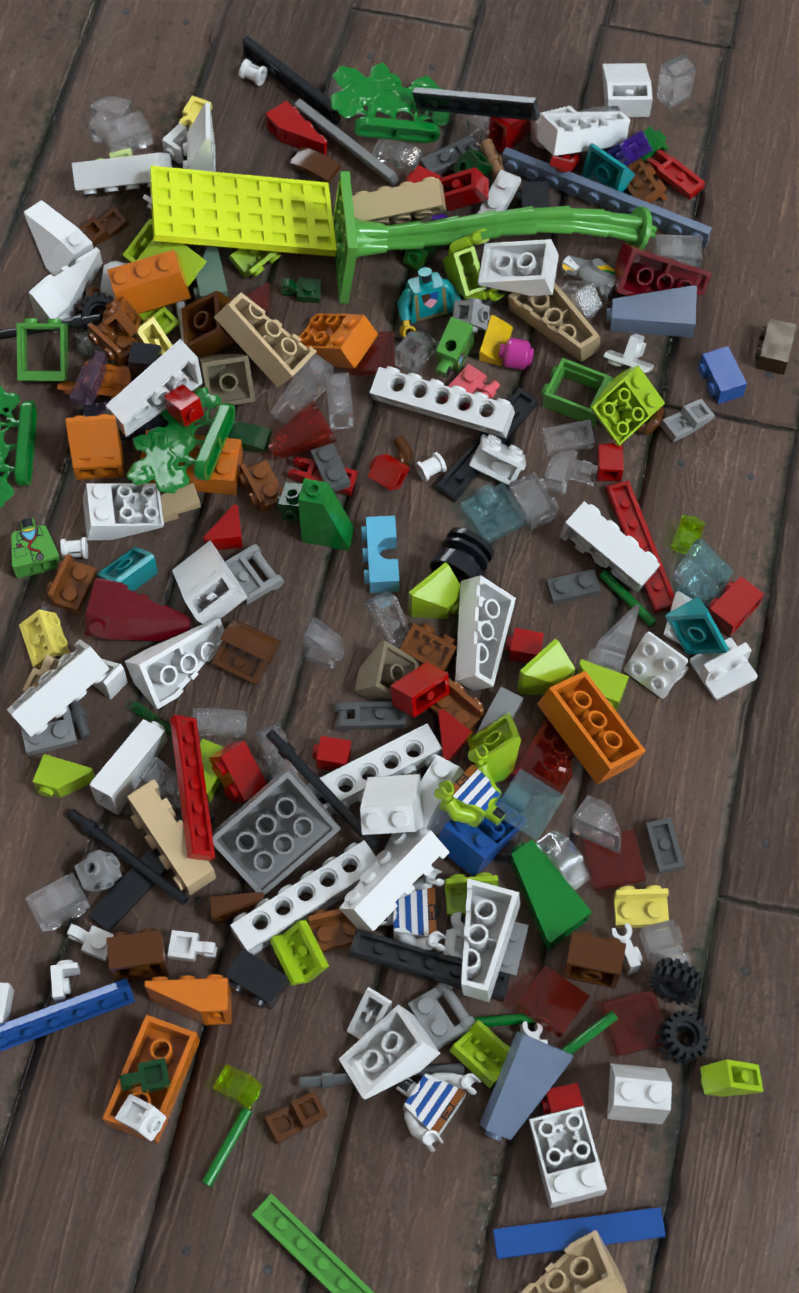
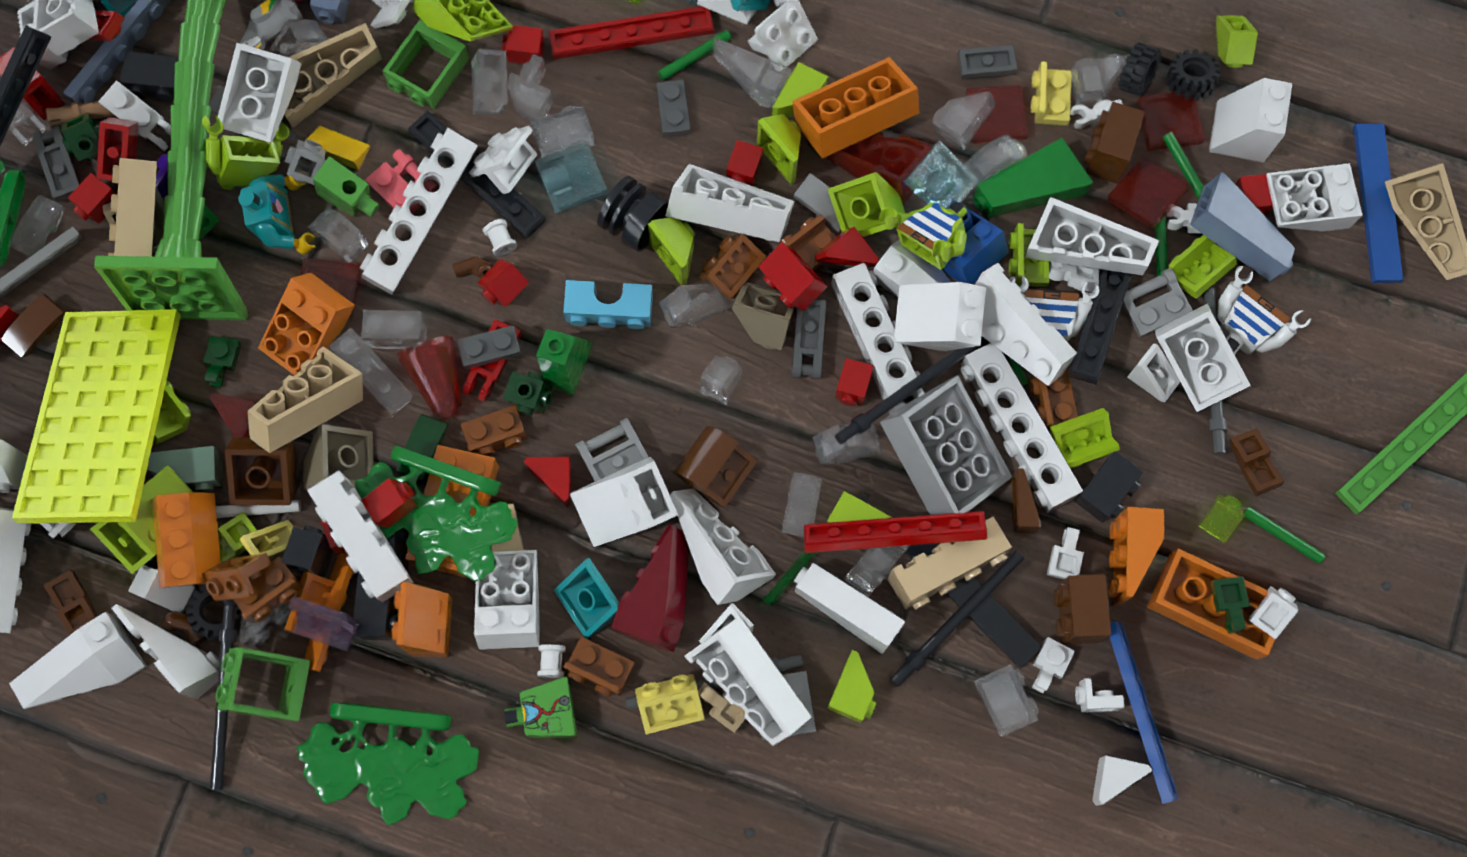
camera: 85 degrees left, 10 degrees up
(98, 871) = (975, 650): light grey brick -> none
(237, 771) = (873, 483): red brick -> none
(516, 354) = (363, 123): dark pink head -> none
(609, 546) = (637, 58): white wedge -> none

